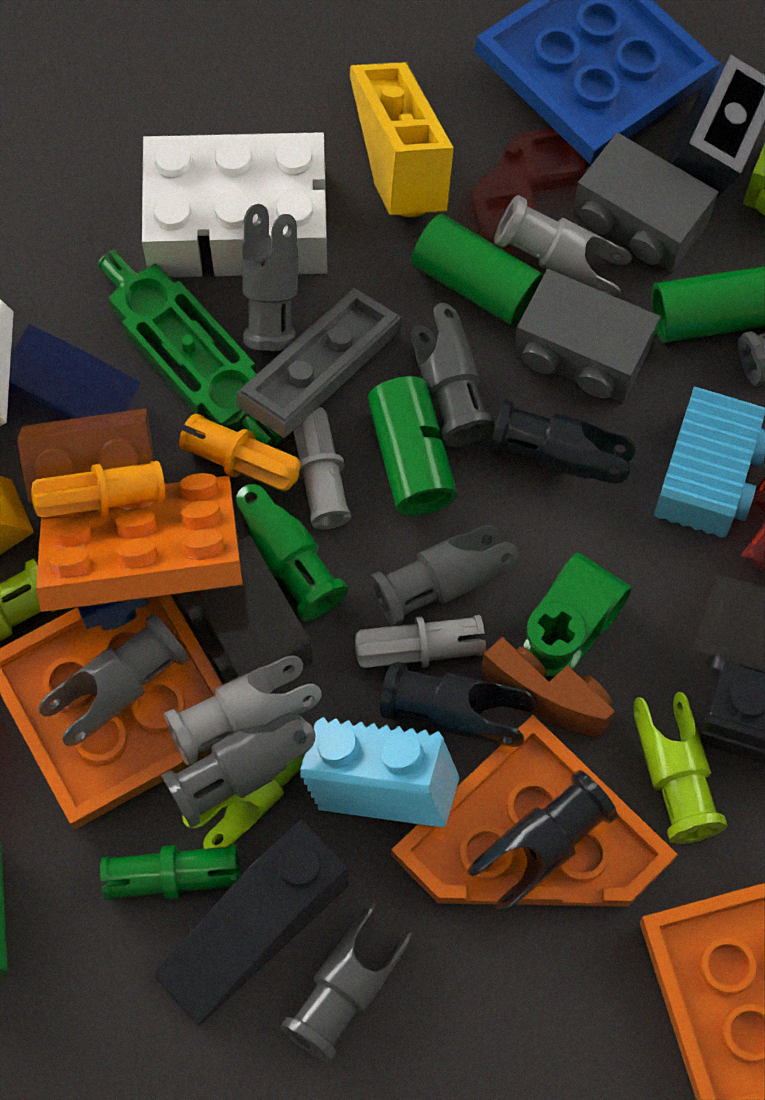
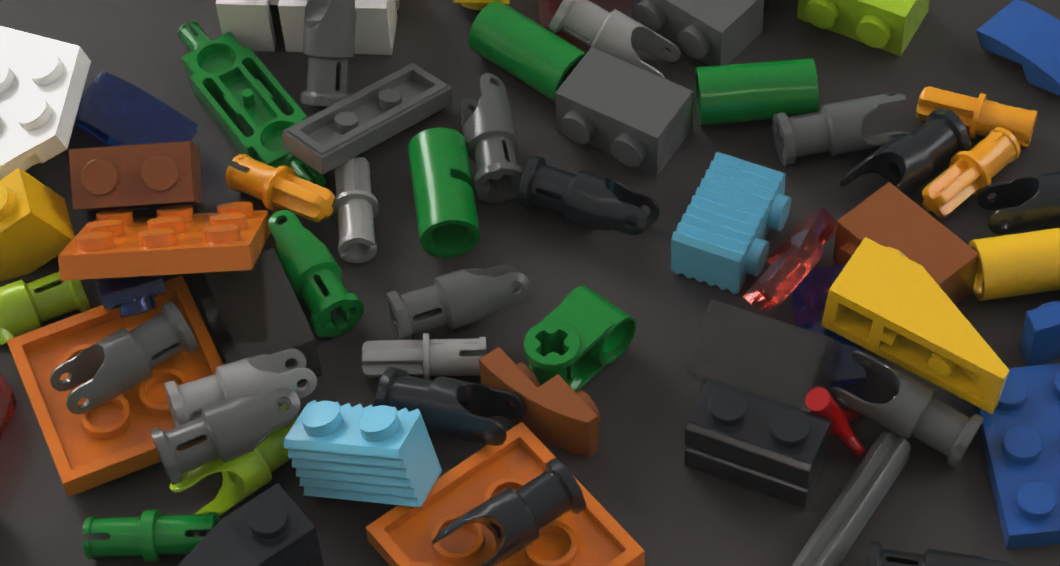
camera: 10 degrees right, 15 degrees down
(98, 489) = (135, 193): light orange axle -> none
(680, 773) = (661, 486): lime piece -> none

